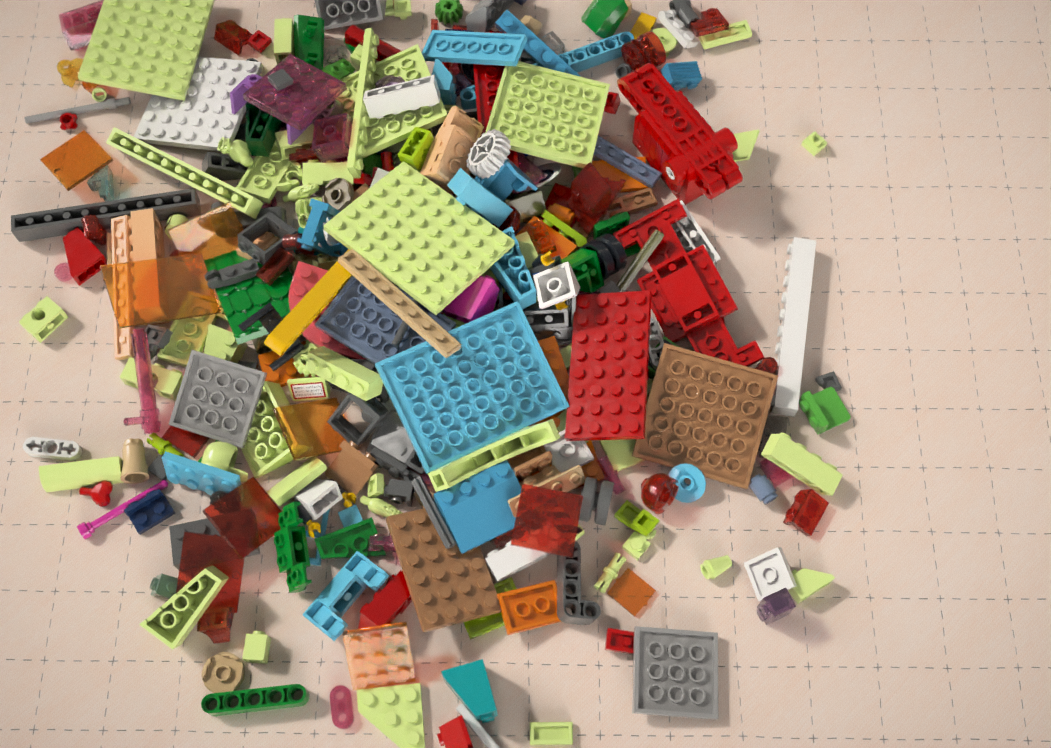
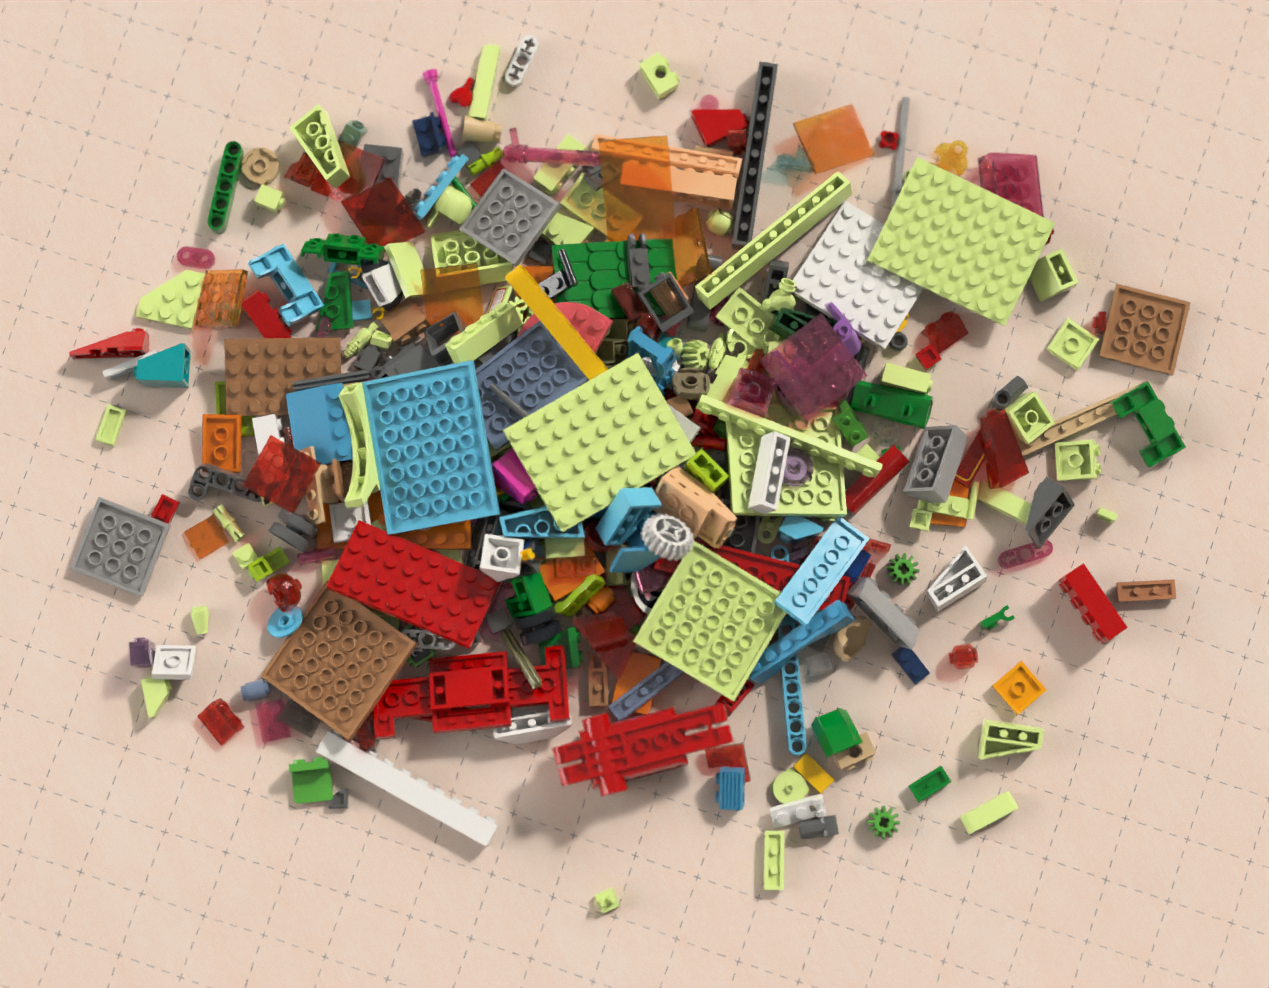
camera: 105 degrees right, 15 degrees up
(280, 79) = (824, 354): dark grey tile -> none
(399, 303) = (527, 400): tan tile -> none
(623, 69) = (760, 731): dark grey plate -> none
(644, 50) = (769, 756): clear red wheel -> none
(711, 22) = (786, 849): clear red plate -> none
(746, 143) = (624, 815): yellowish green piece -> none
(802, 464) = (259, 729): yellowish green brick -> none

